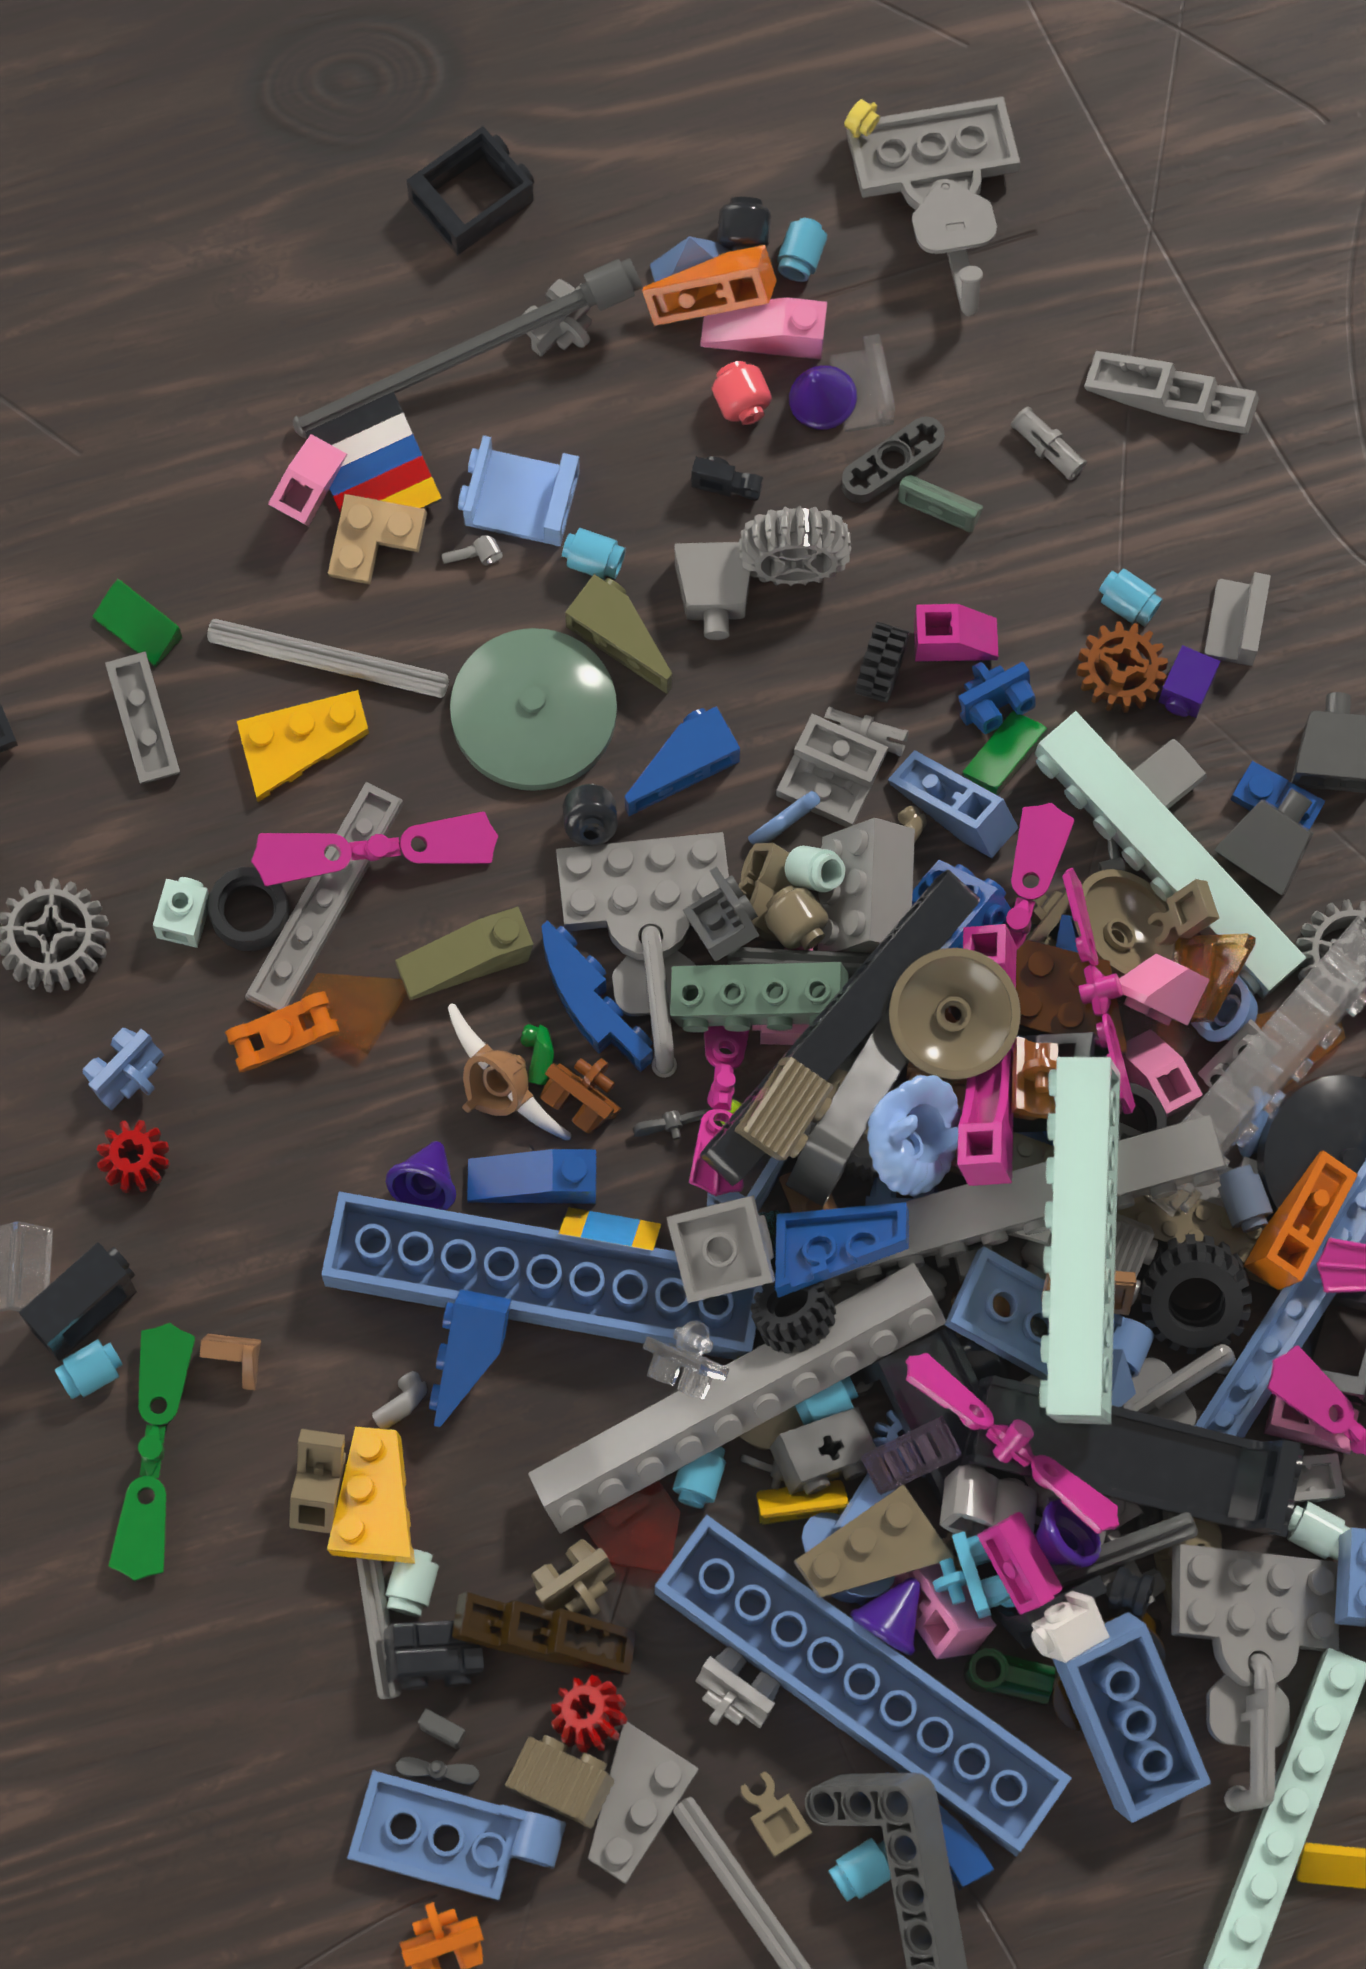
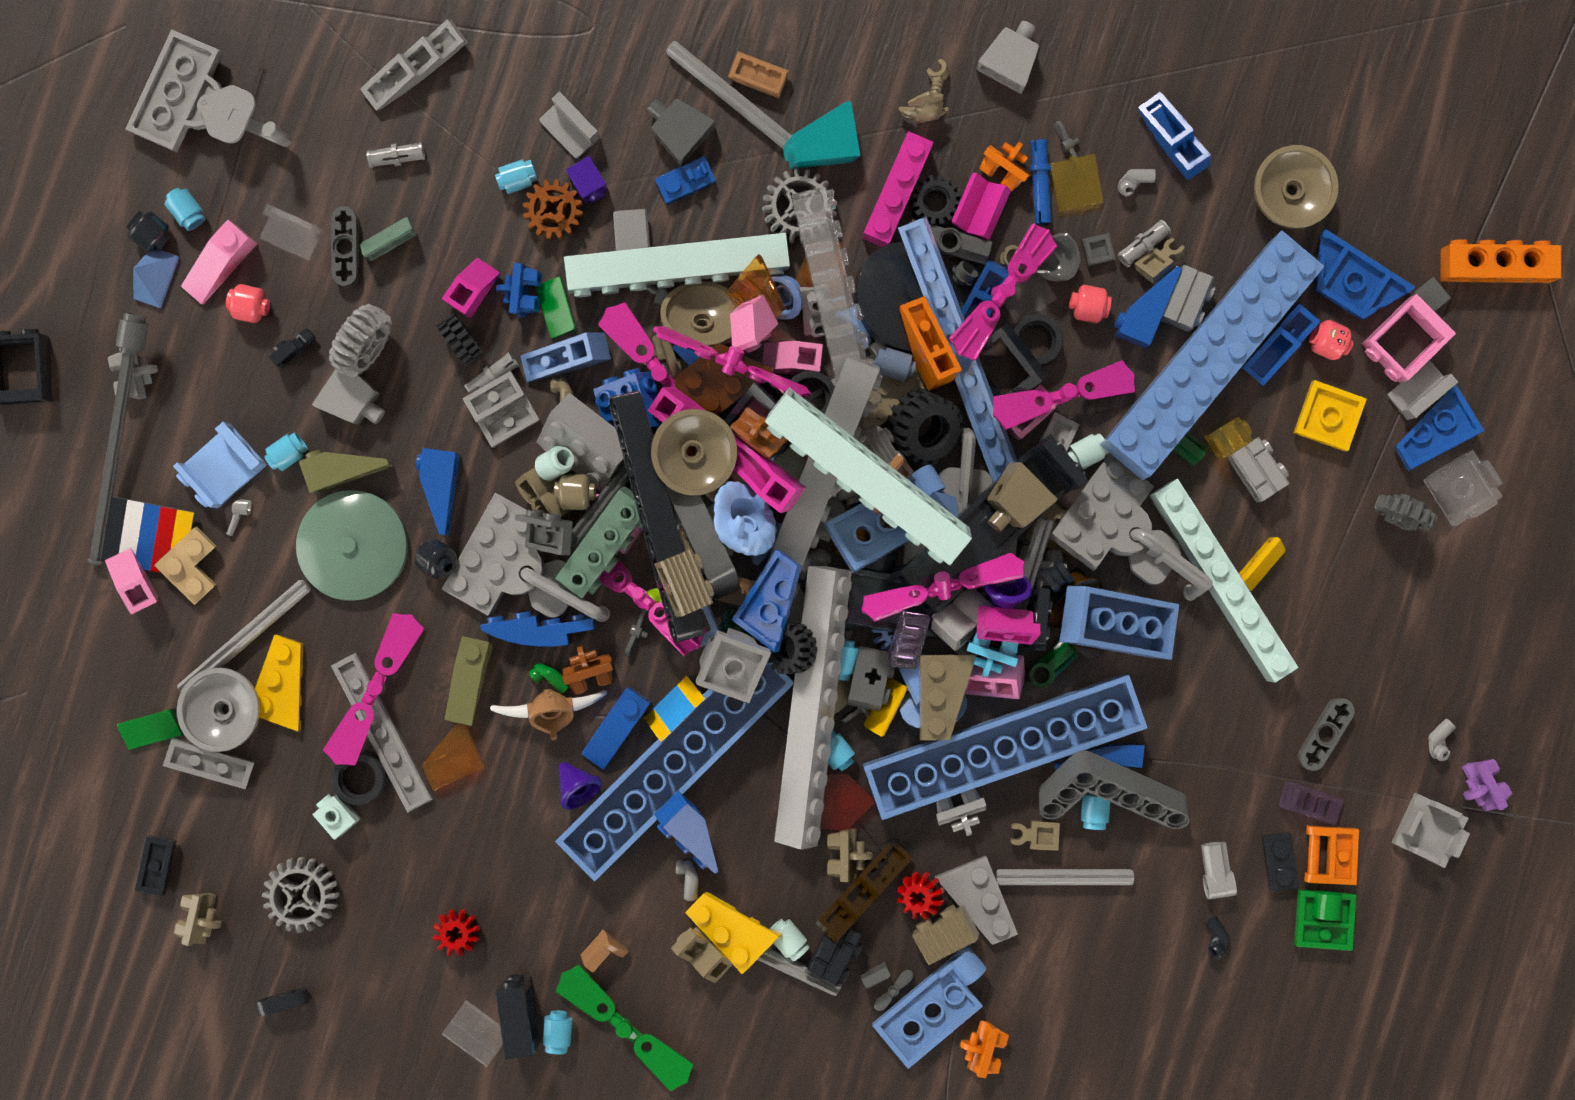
camera: 50 degrees left, 15 degrees up
(127, 1070) = (406, 905): medium blue hips -> none
(215, 662) = (202, 712): none -> light grey dish
(282, 1032) = (442, 807): orange plate -> none
(687, 1352) = (773, 719): clear hips -> none
(713, 287) = (173, 274): orange slope -> none
(785, 819) = (511, 462): medium blue piece -> none
(823, 397) = (281, 259): dark purple hat -> none
(862, 119) = (129, 119): light yellow plate -> none
(892, 1615) = (982, 707): dark purple hat -> none
(1069, 1628) = (1059, 626): white brick -> none
(1188, 913) = (719, 279): dark tan plate -> none
(1193, 1465) = (1018, 498): none -> dark tan torso
(1270, 841) = (707, 203): dark grey torso -> none

